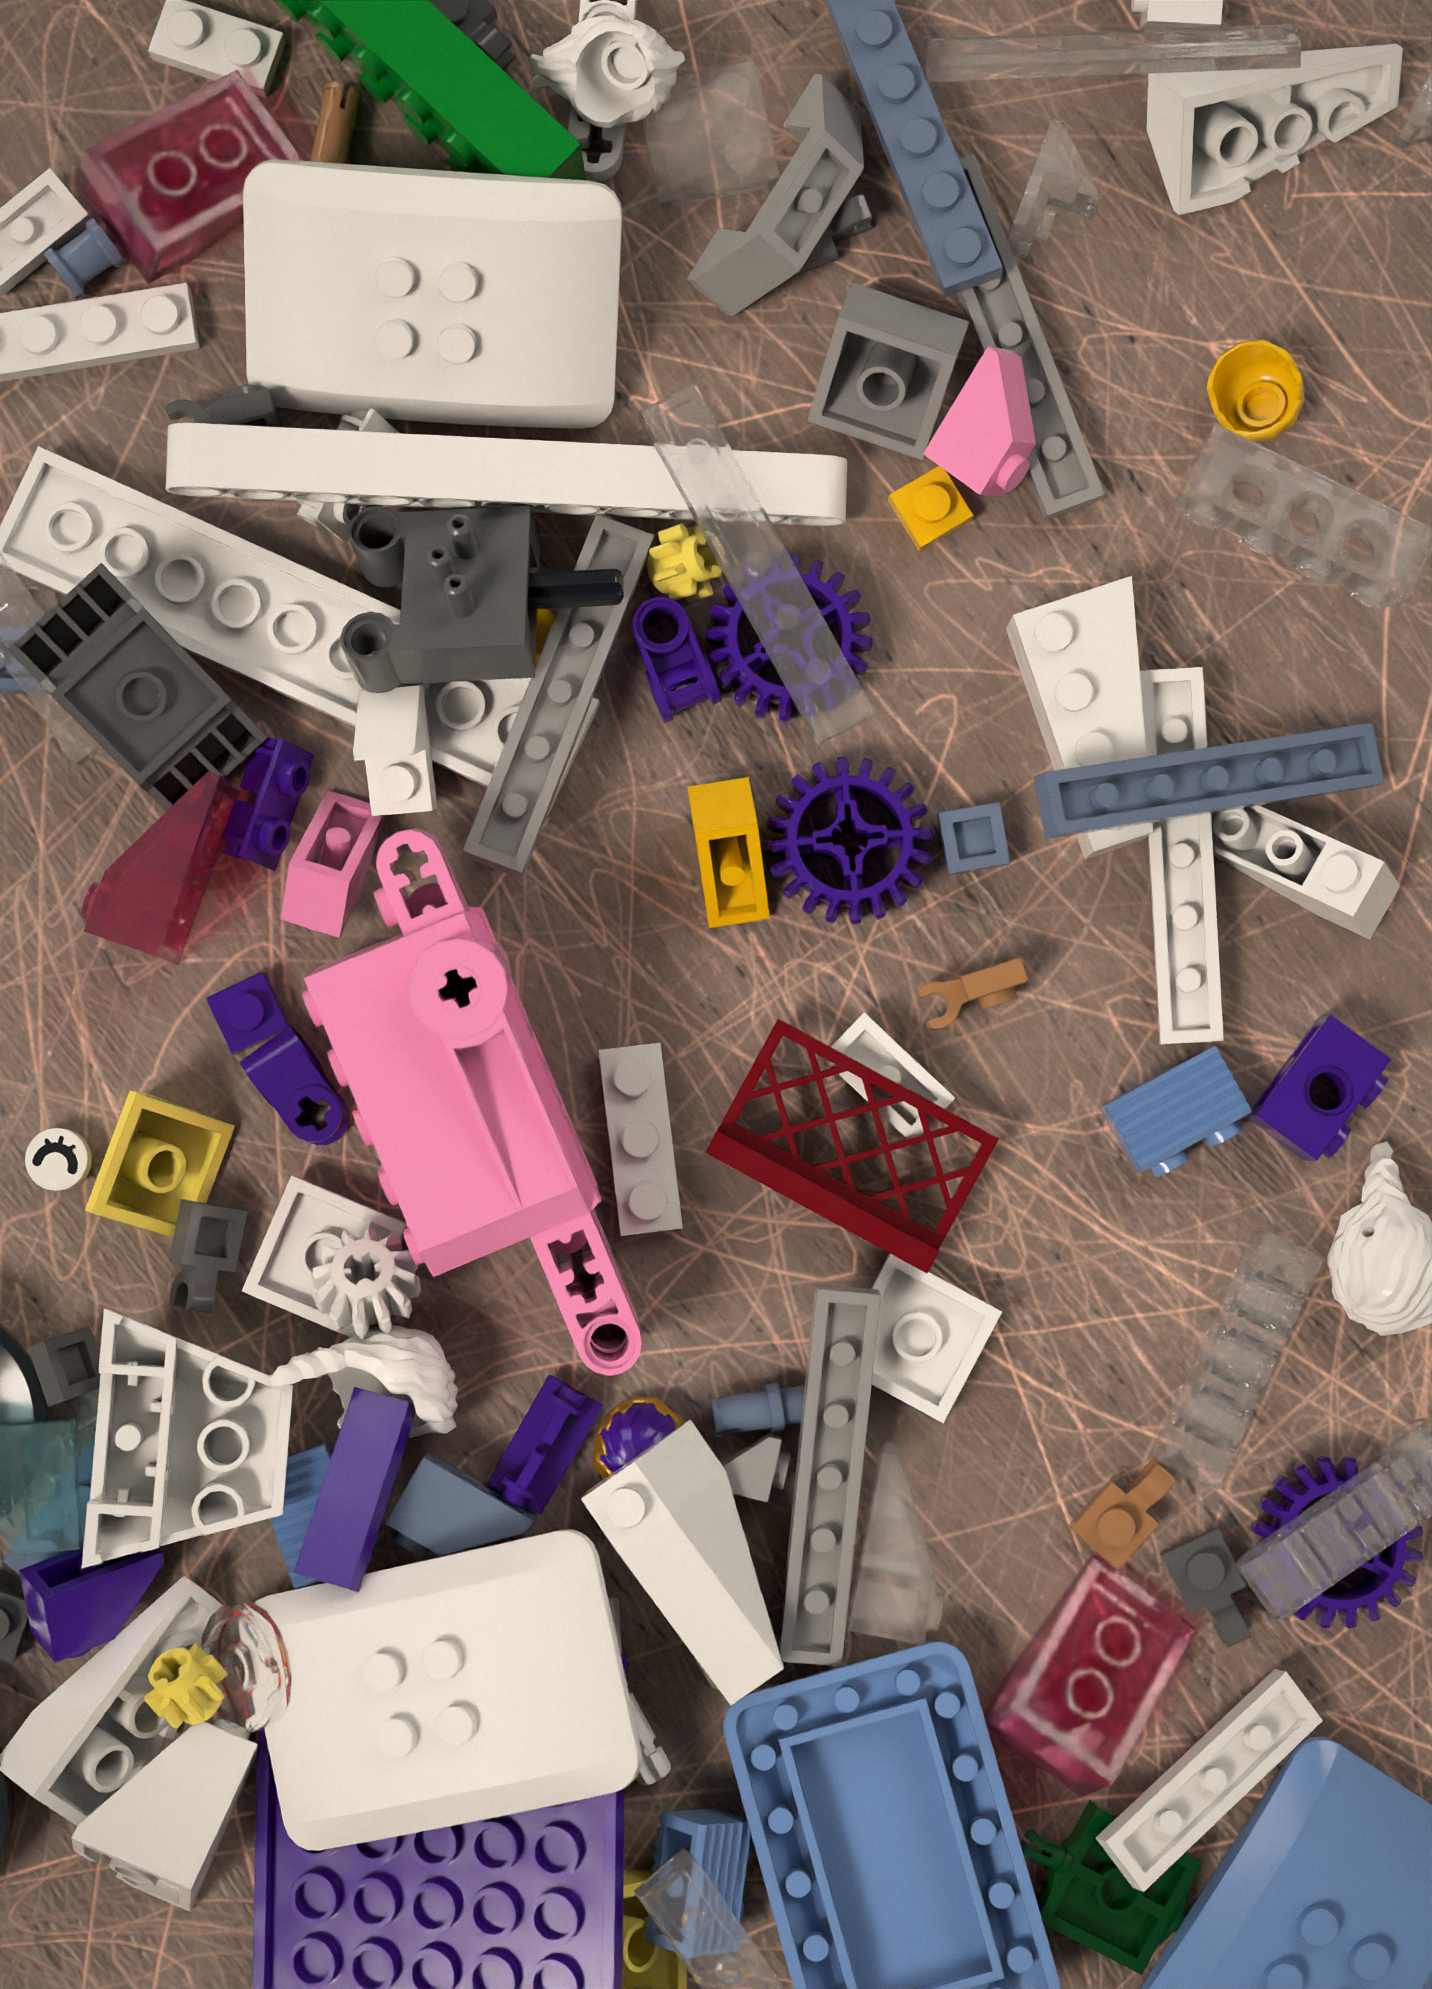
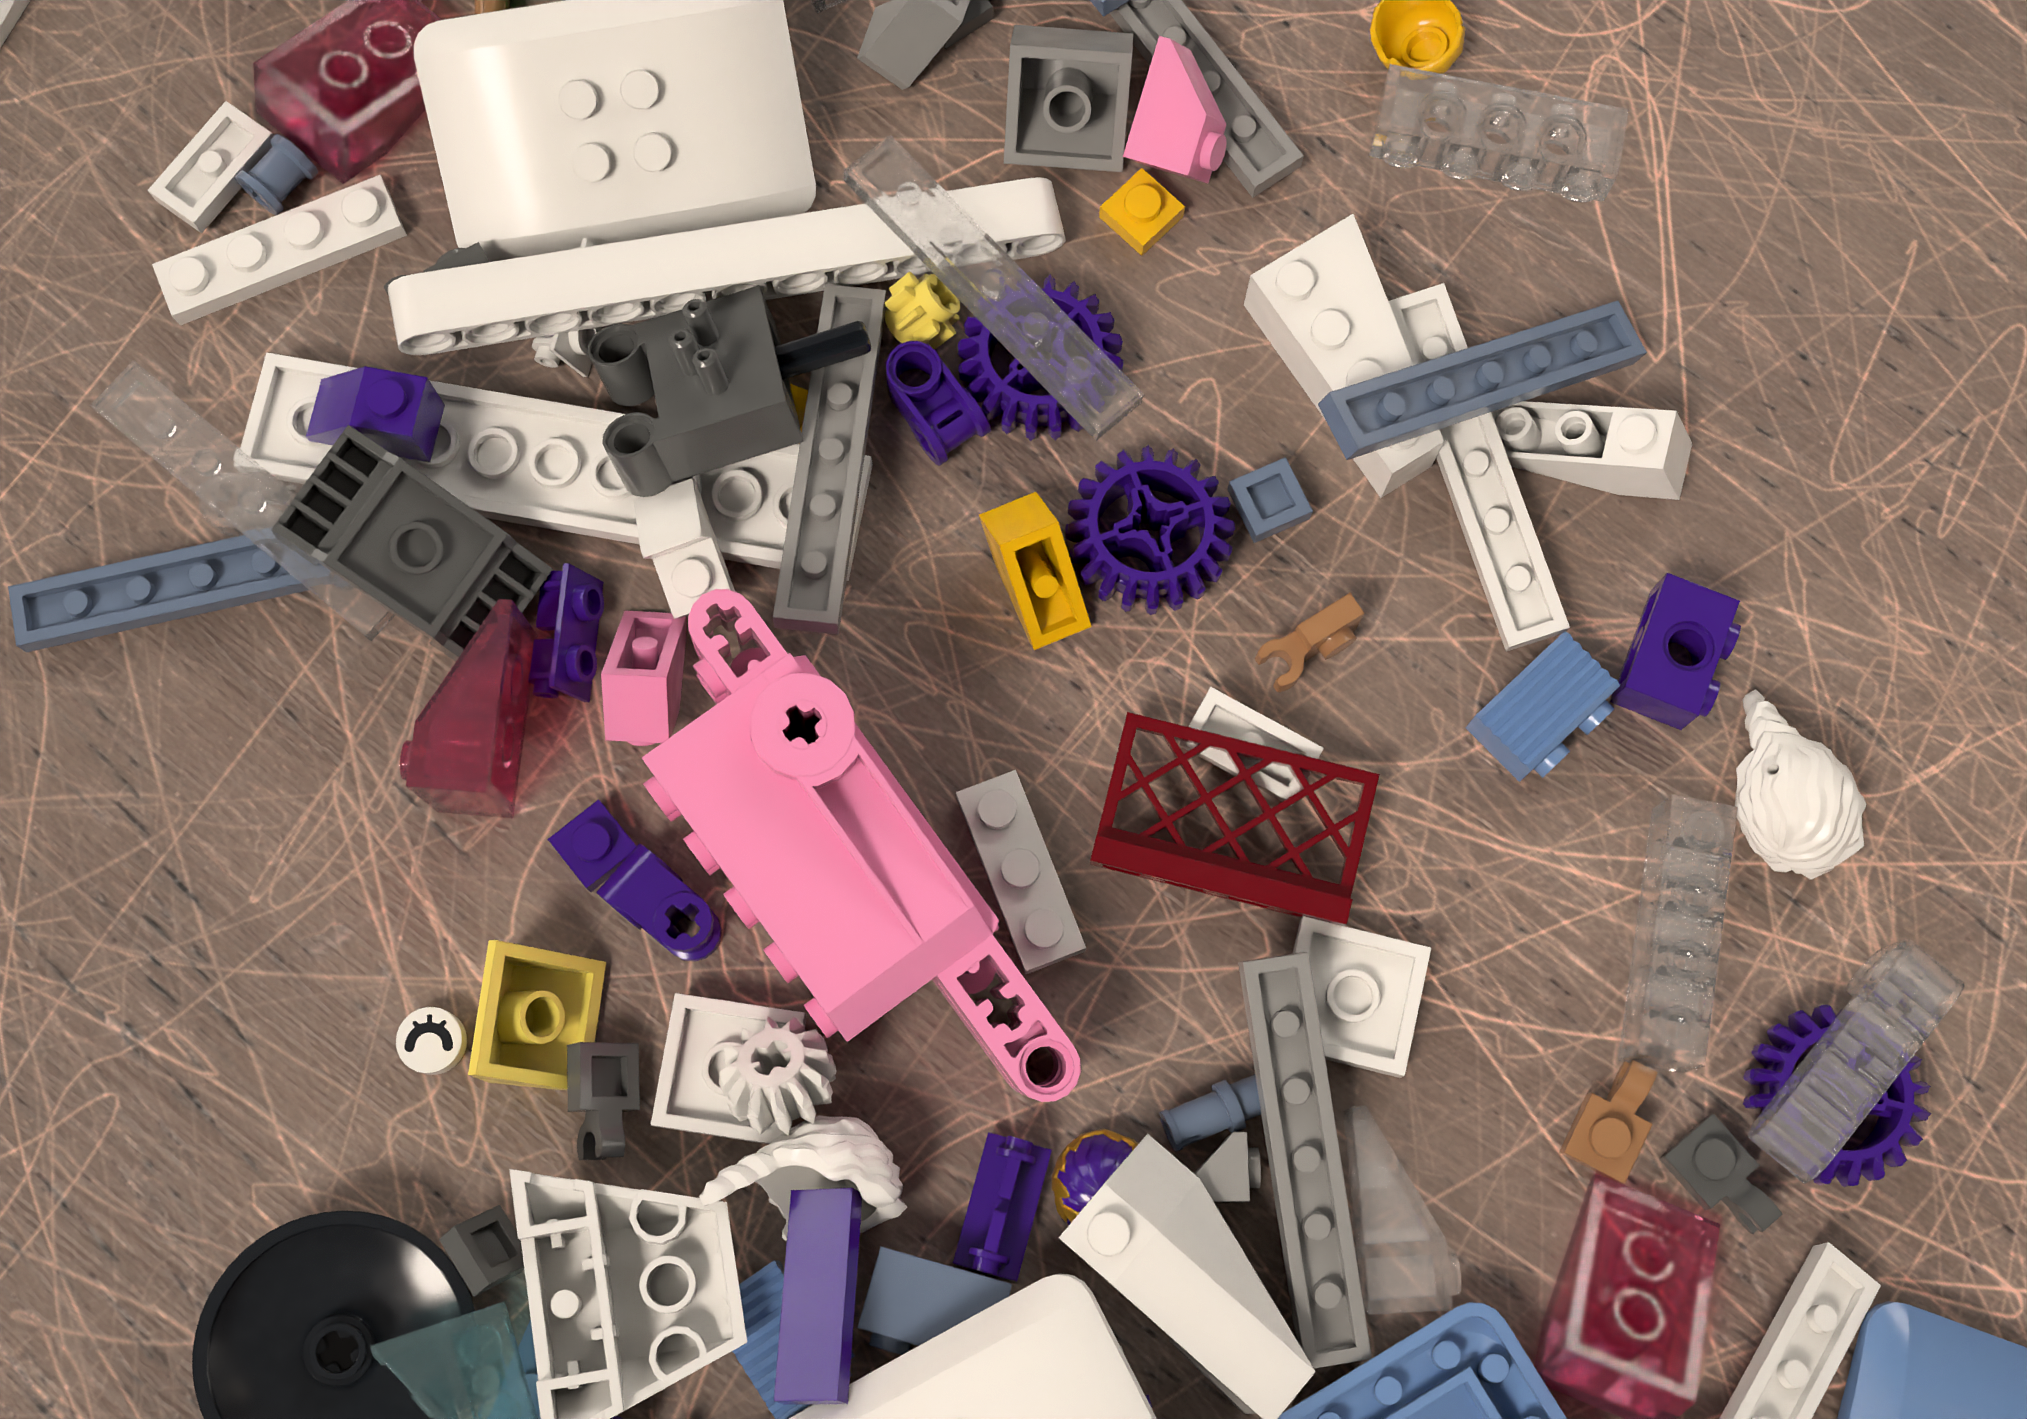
camera: 15 degrees left, 10 degrees down
(131, 542) = (384, 405): none -> dark purple slope

